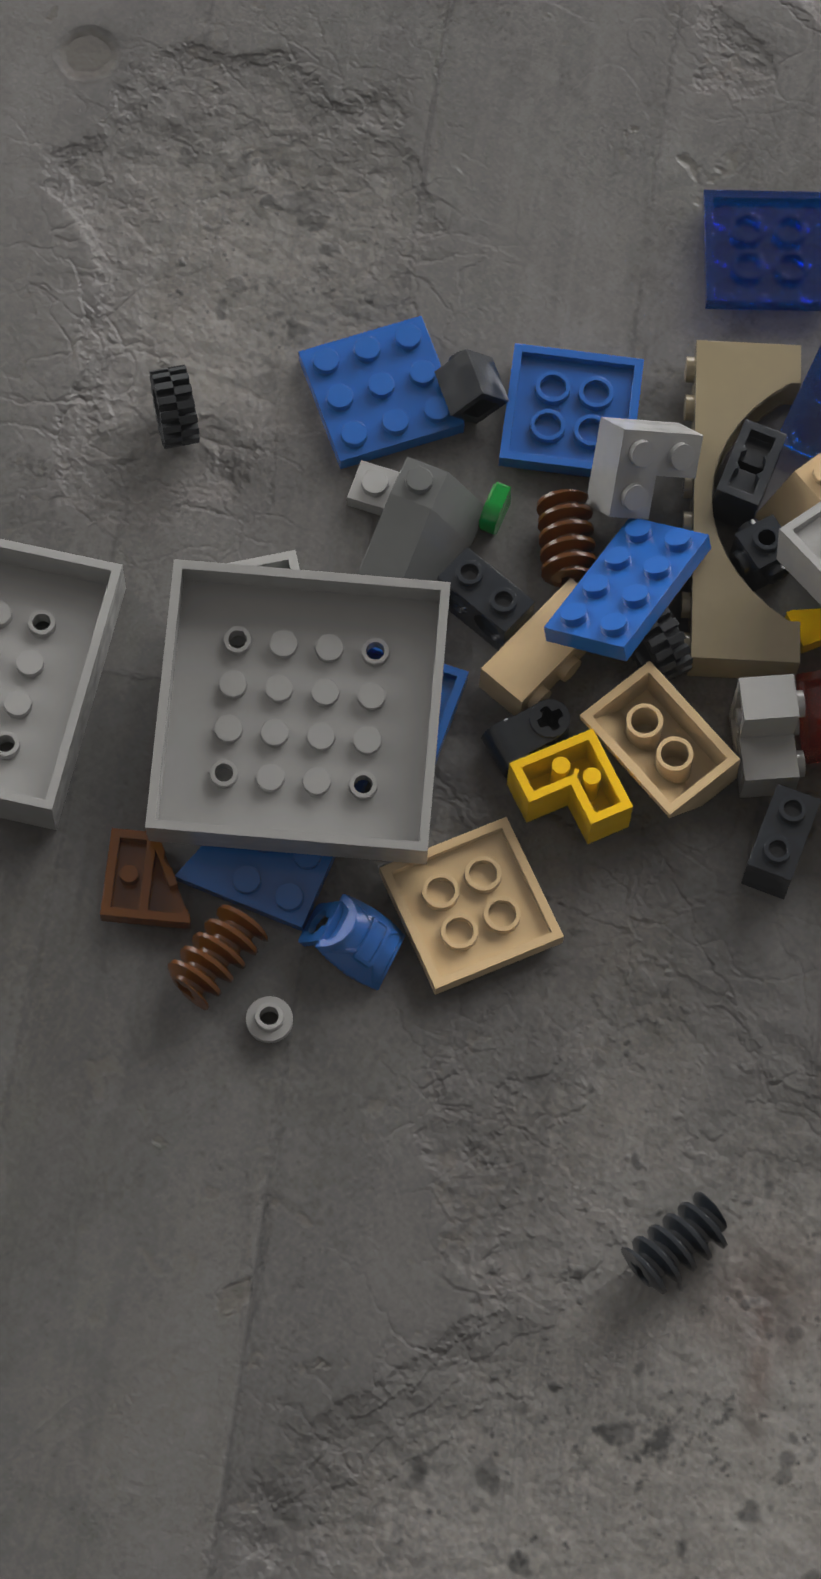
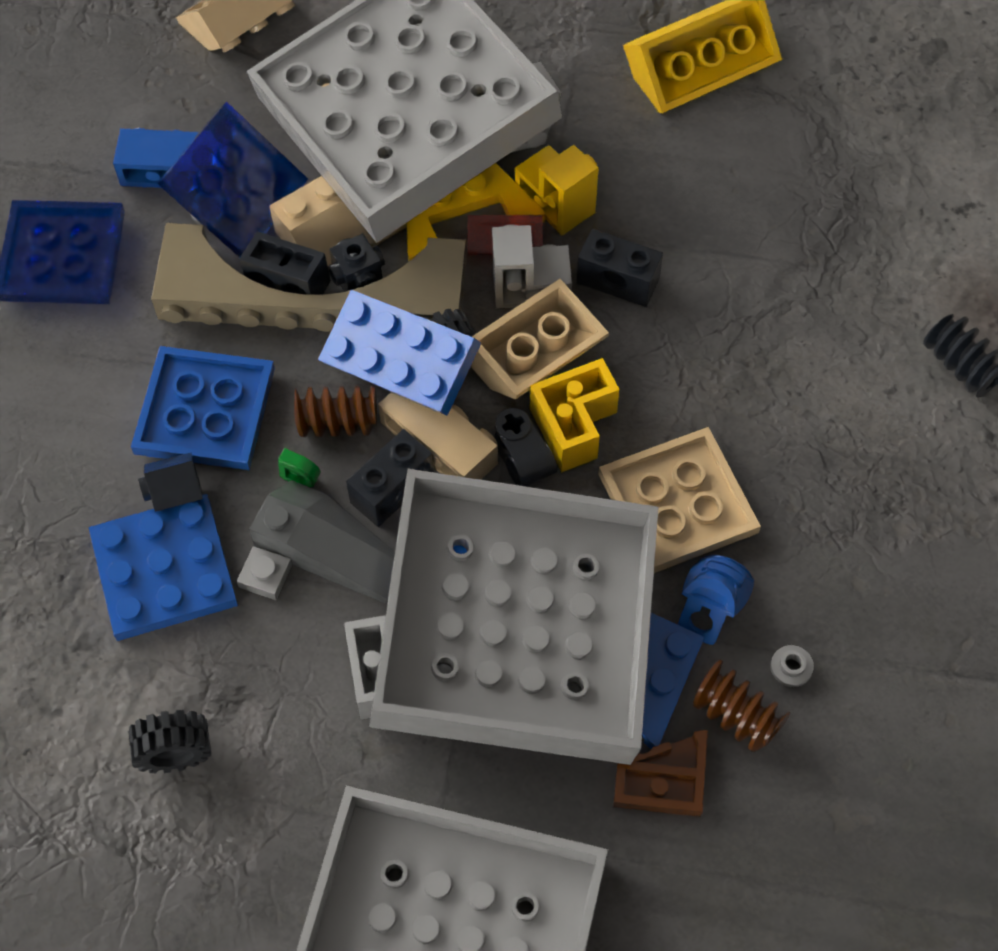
camera: 85 degrees left, 5 degrees down
(630, 458) = (270, 346): light grey brick -> none

